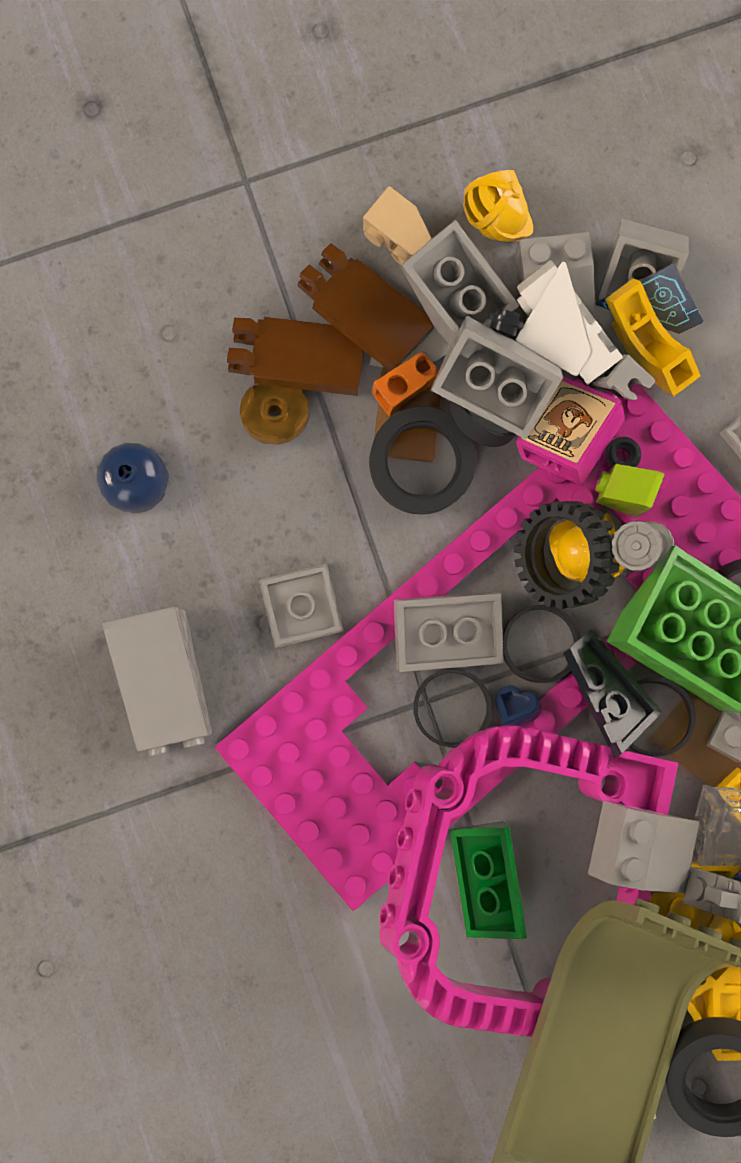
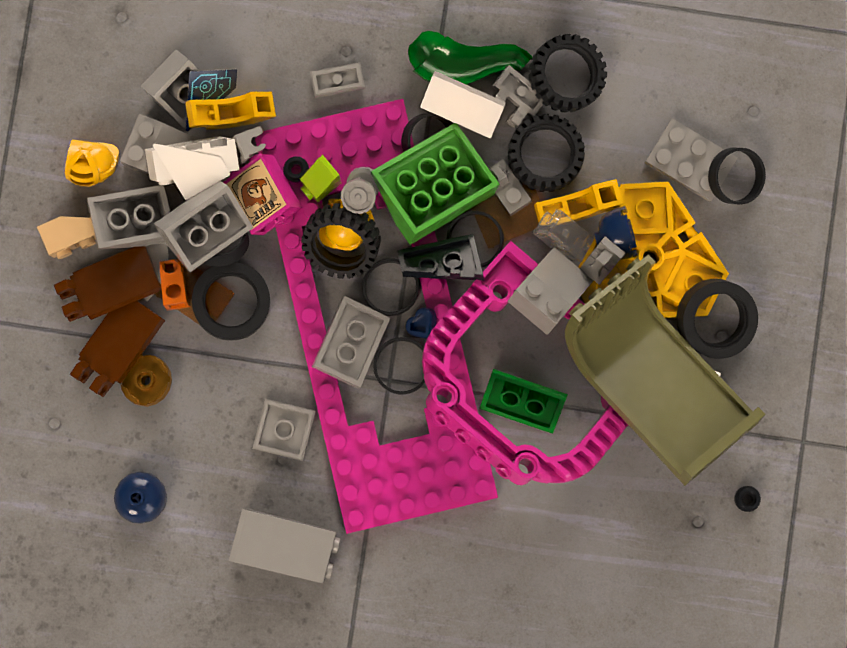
camera: 65 degrees left, 0 degrees up
(506, 322) = (171, 200): black plate -> none

